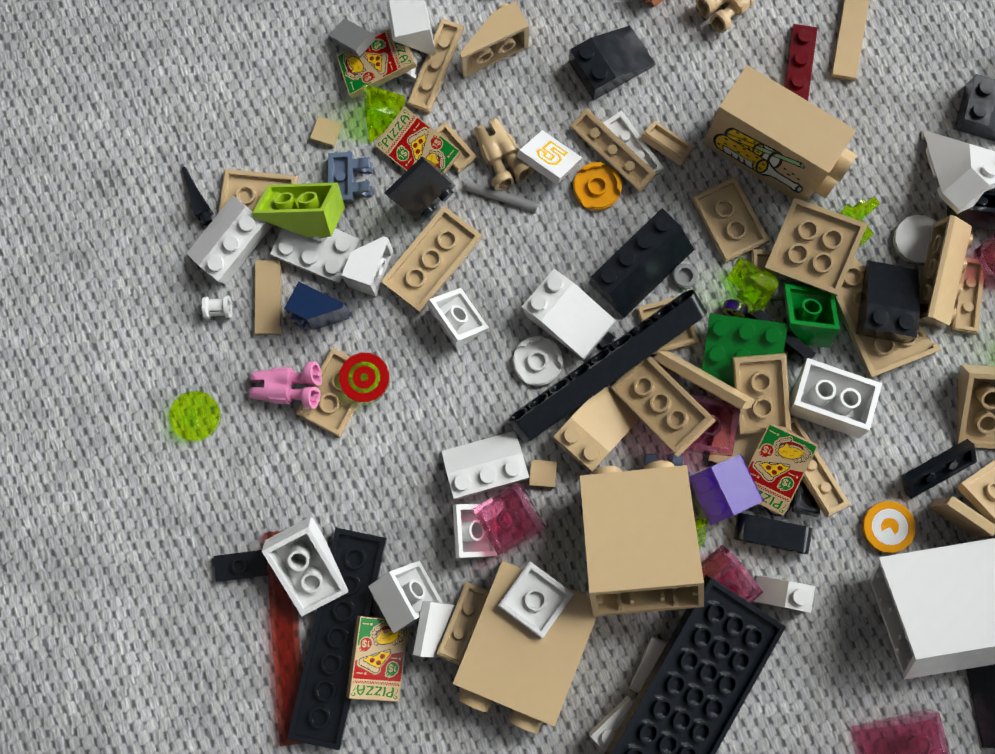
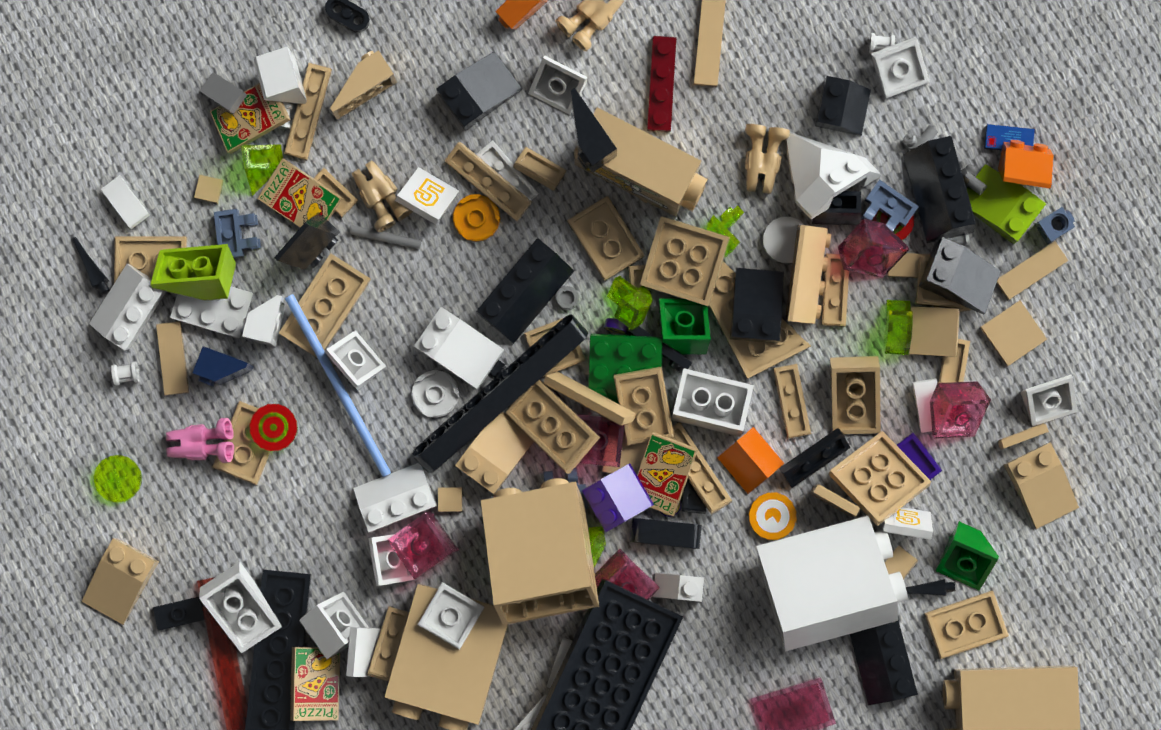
camera: 10 degrees left, 5 degrees up
(182, 523) = (119, 580): none -> tan slope
(239, 136) = (125, 202): none -> white slope
(437, 341) = (338, 386): none -> light blue piece
(694, 60) = (554, 84): none -> white slope
(744, 87) = (593, 143): none -> black slope
(868, 465) = (750, 460): none -> orange slope
(899, 158) = (762, 163): none -> tan piece
(916, 406) = (792, 401): none -> tan tile

